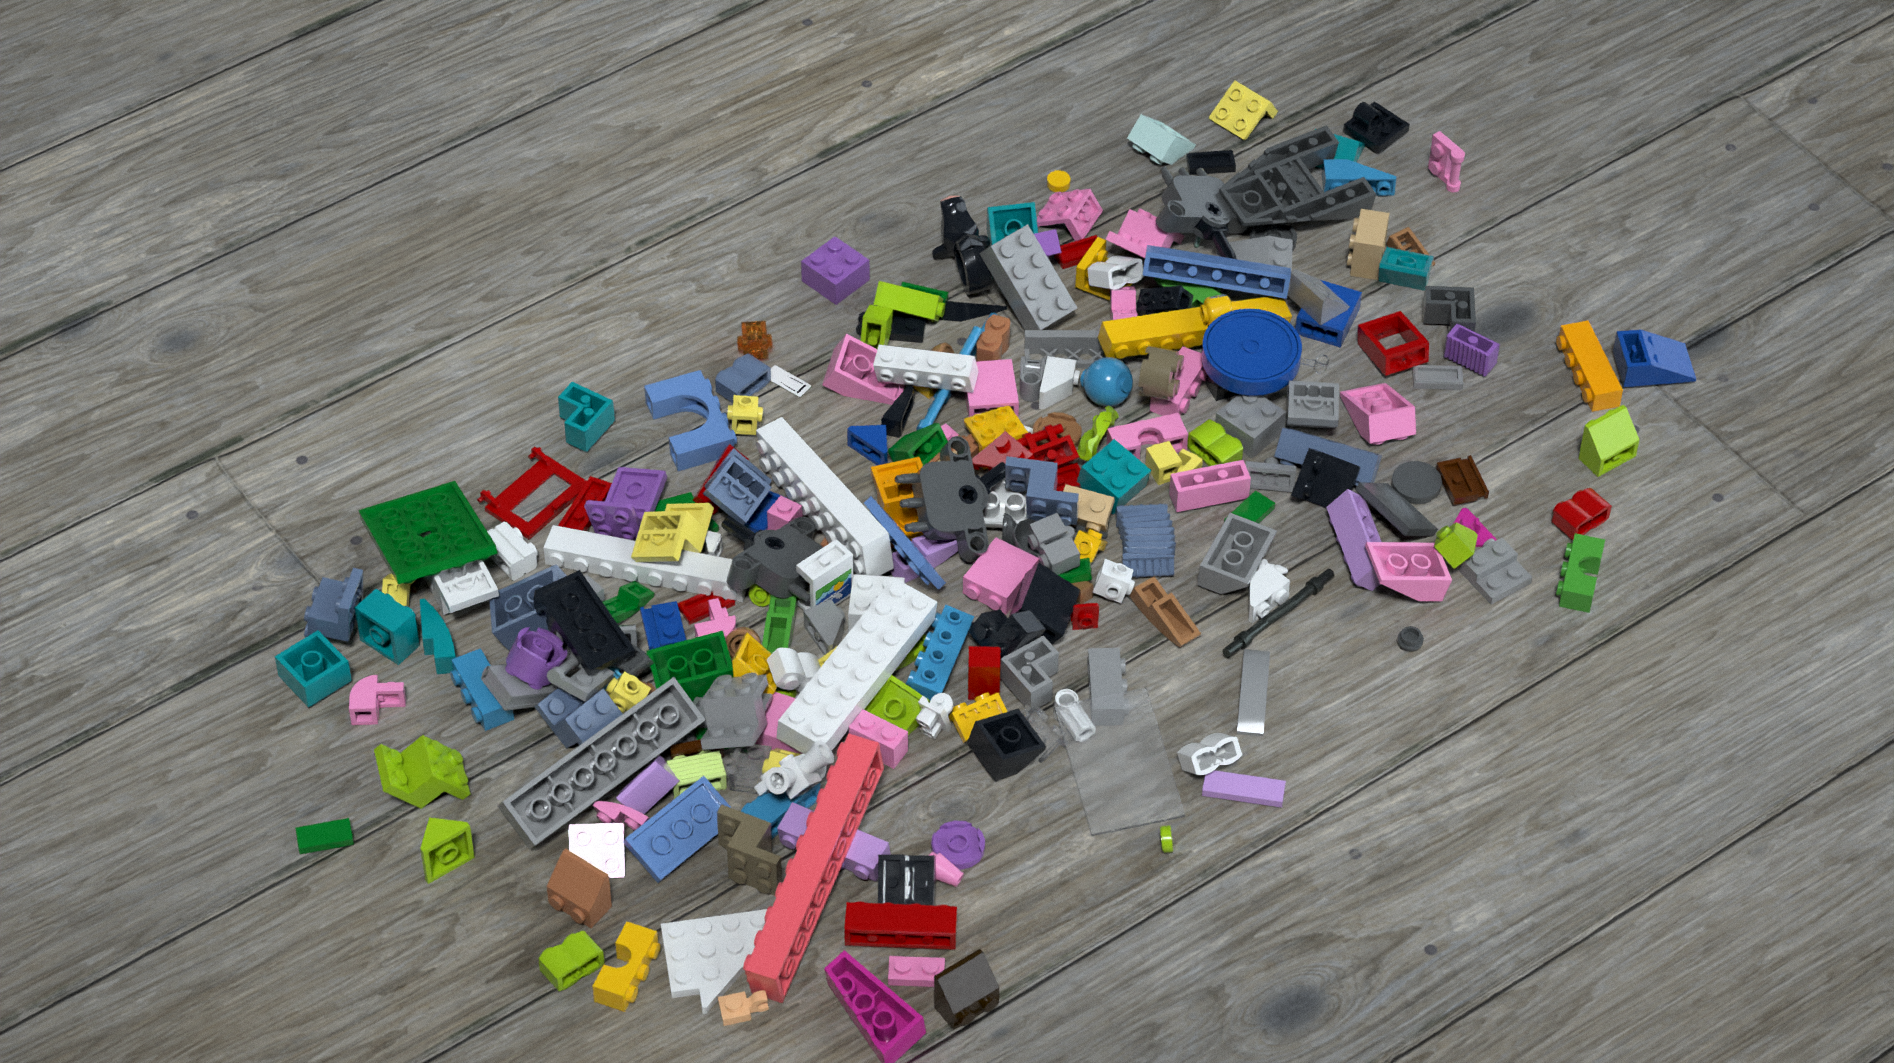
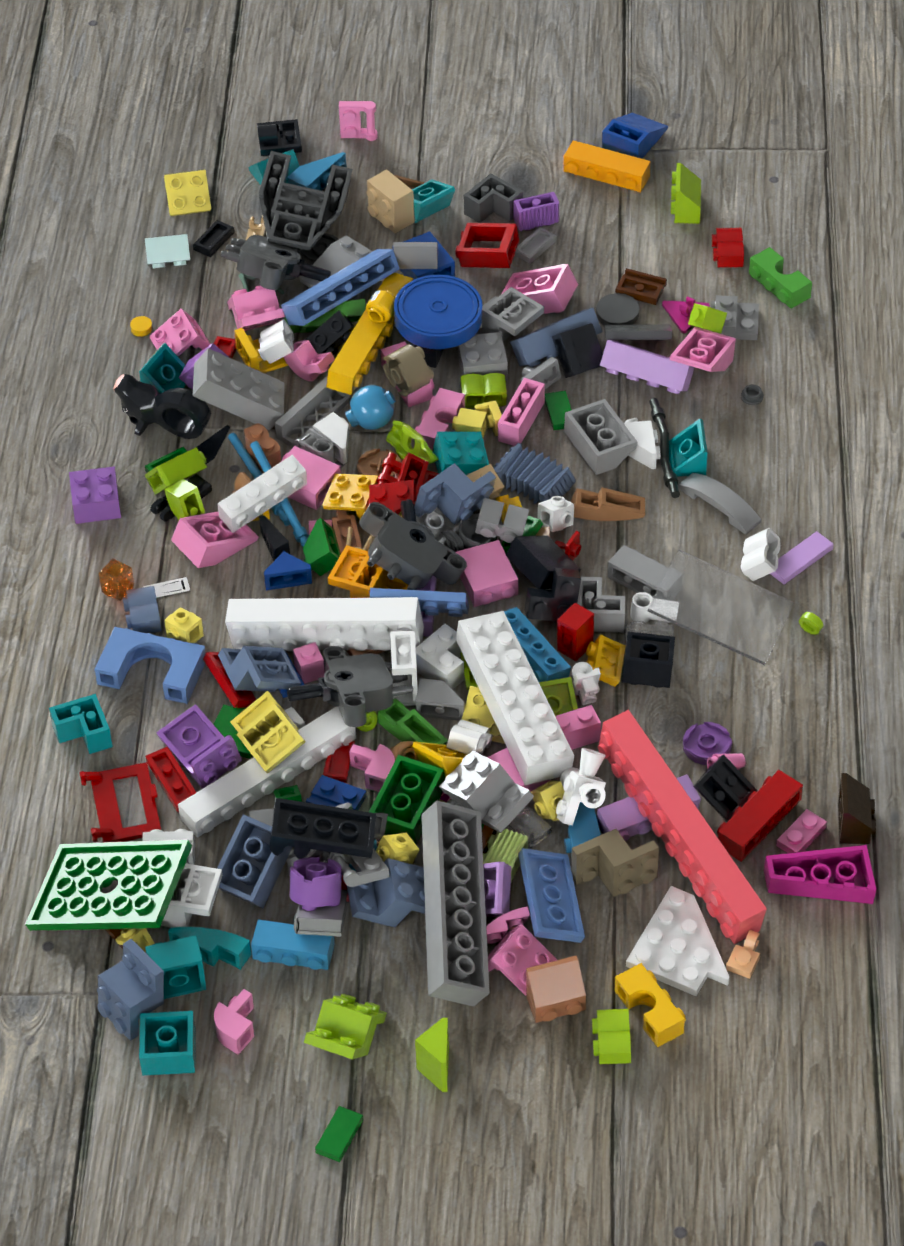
camera: 50 degrees left, 0 degrees up
(1290, 634) = (689, 451): none -> teal slope

